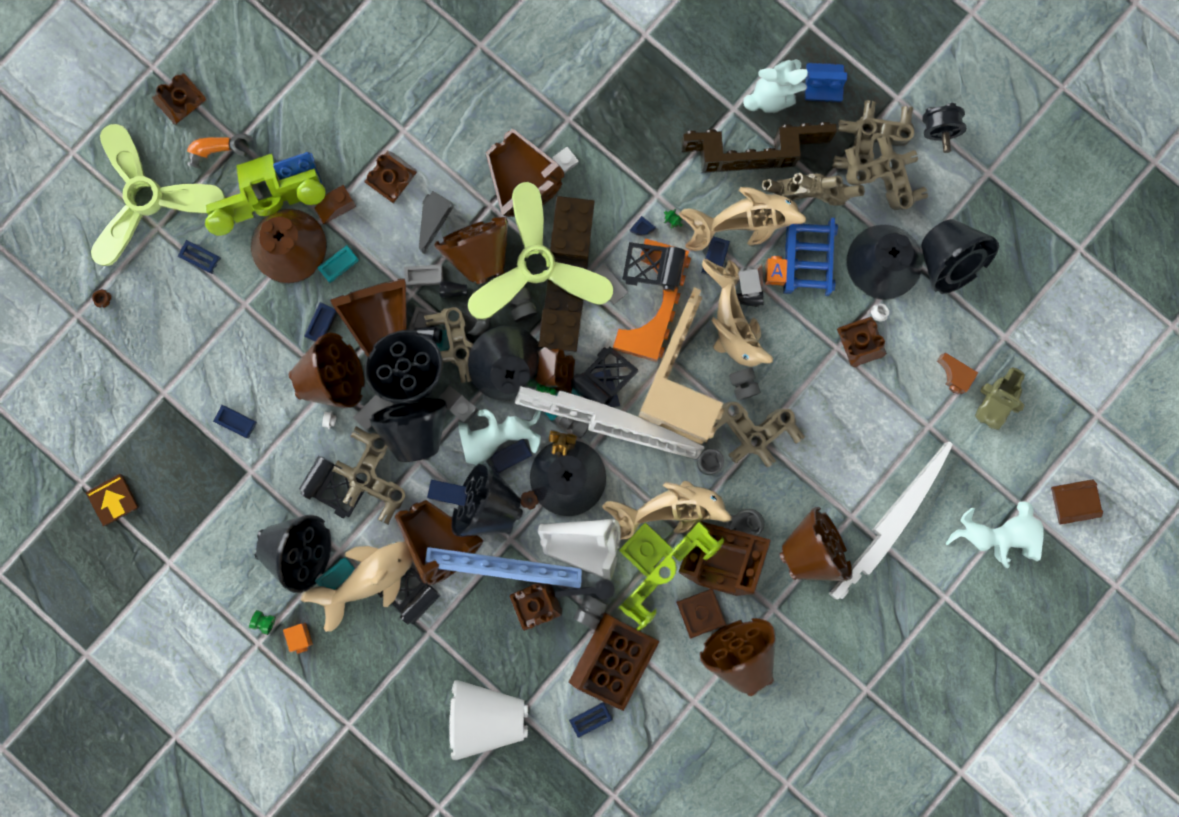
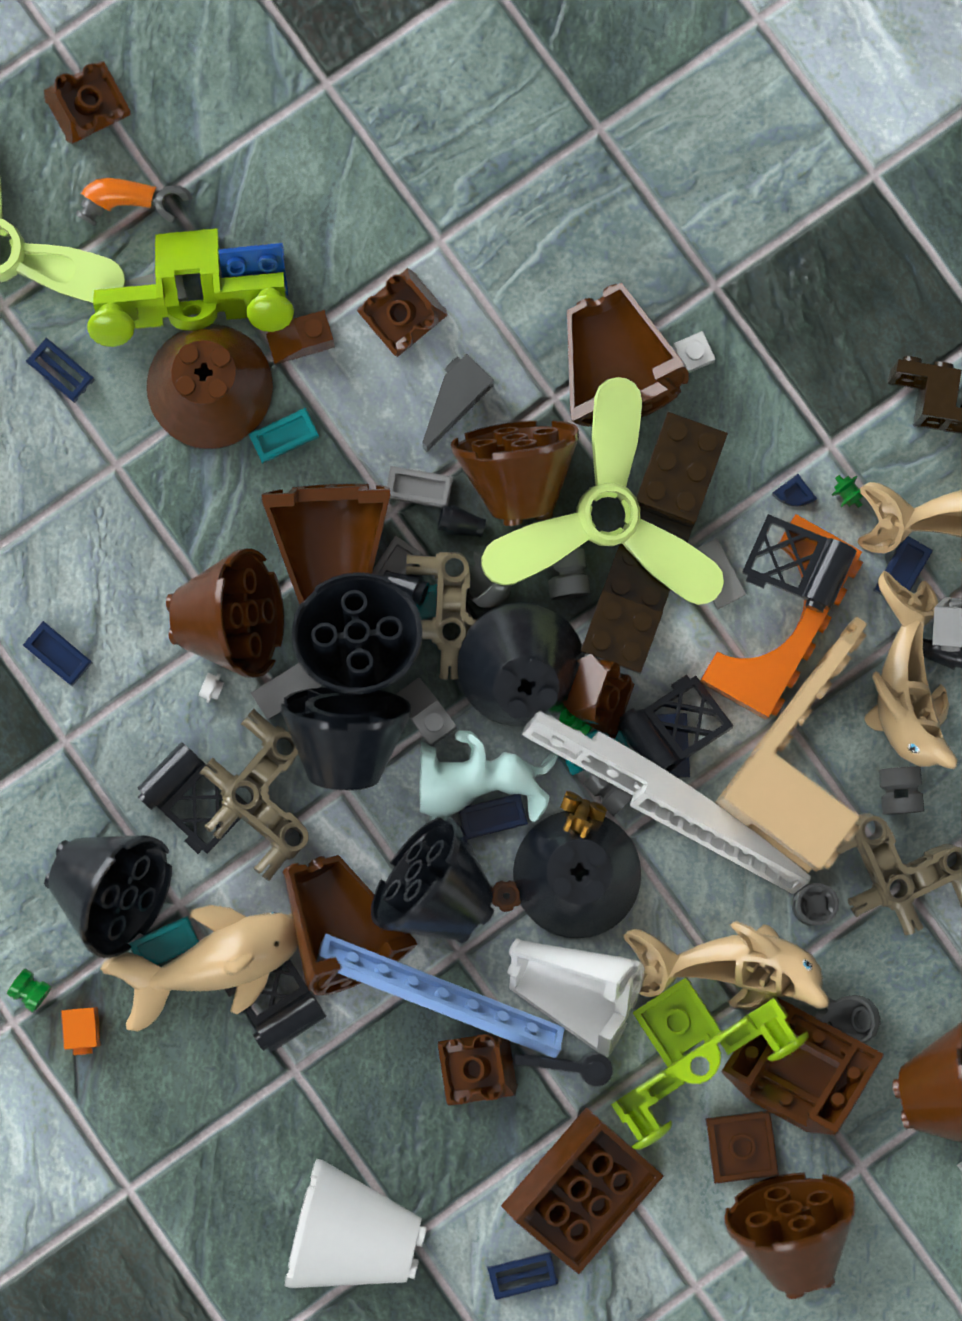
camera: 10 degrees right, 0 degrees up
(320, 322) = (233, 525): dark blue tile -> none
(447, 492) = (375, 851): dark blue tile -> none
(590, 611) = (563, 1101): dark grey wheel -> none

